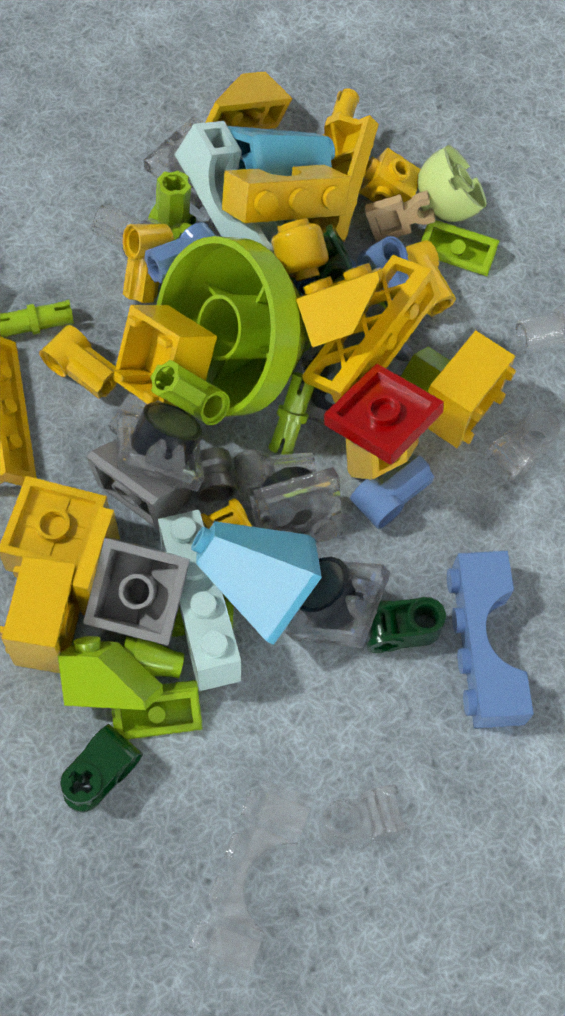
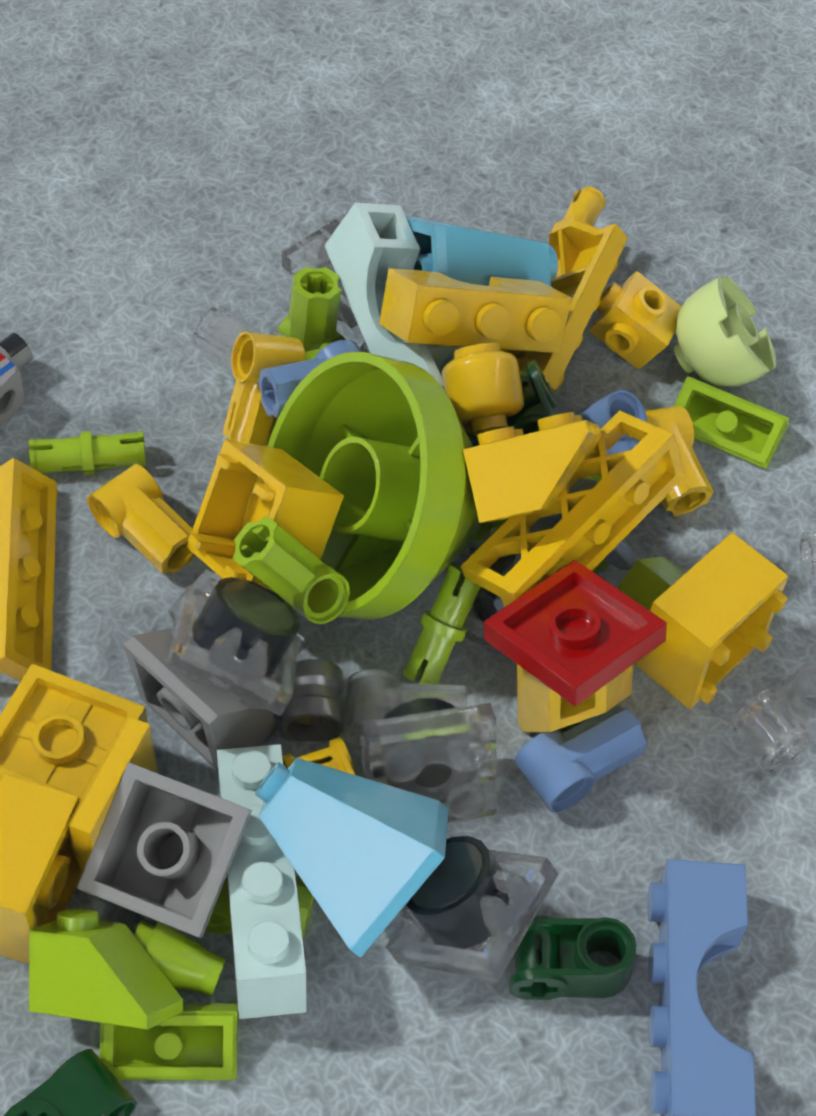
camera: 10 degrees right, 10 degrees down
(251, 102) = (449, 190): yellow slope -> none
(395, 217) = (639, 369): tan plate -> none

